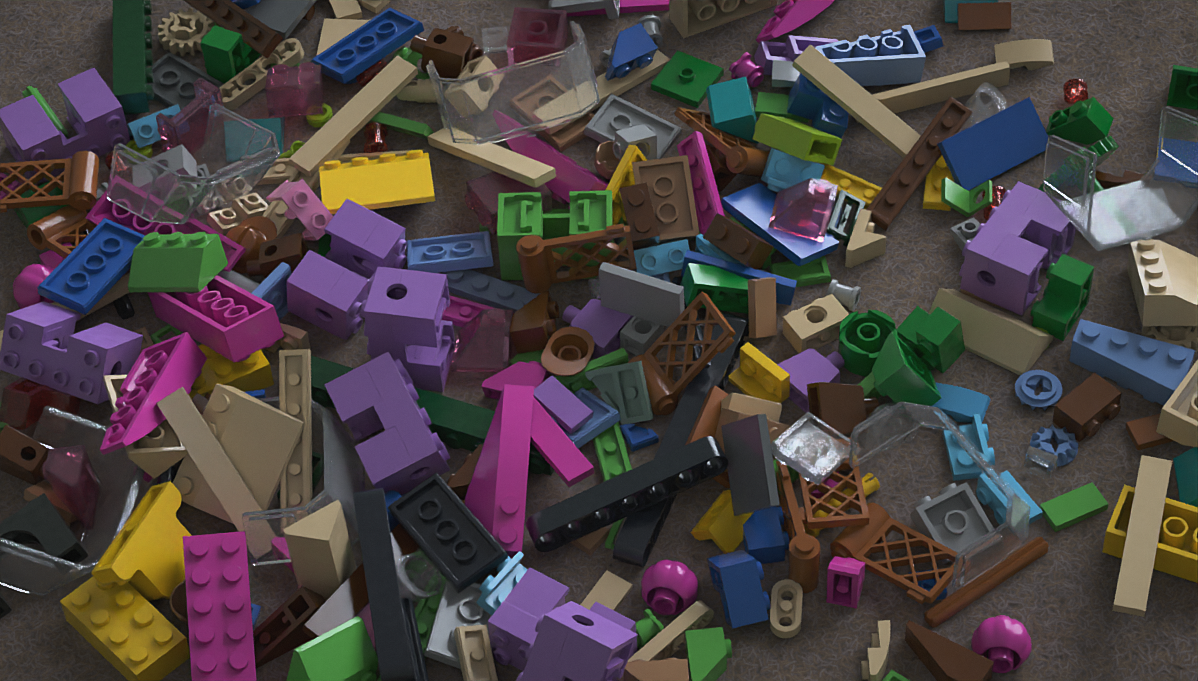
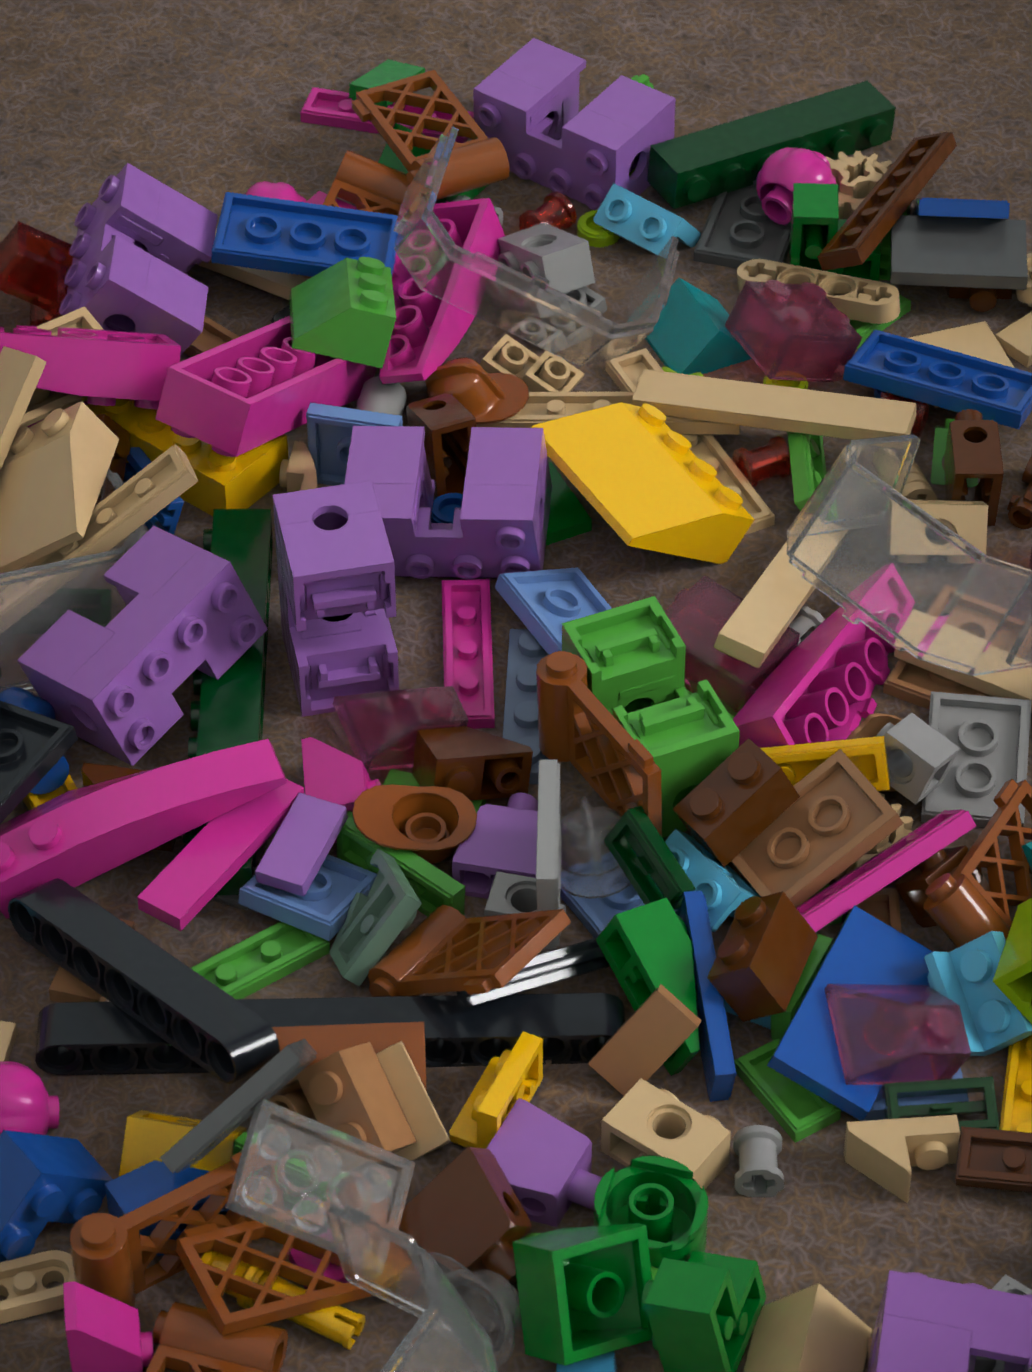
camera: 65 degrees right, 5 degrees down
(180, 51) = (779, 173): none -> dark pink plant
(190, 123) = (640, 235): clear pink panel -> none
(304, 206) = (528, 391): bright pink window -> none
(638, 437) = (314, 977): blue tile -> none
(674, 263) = (652, 859): none -> dark green tile

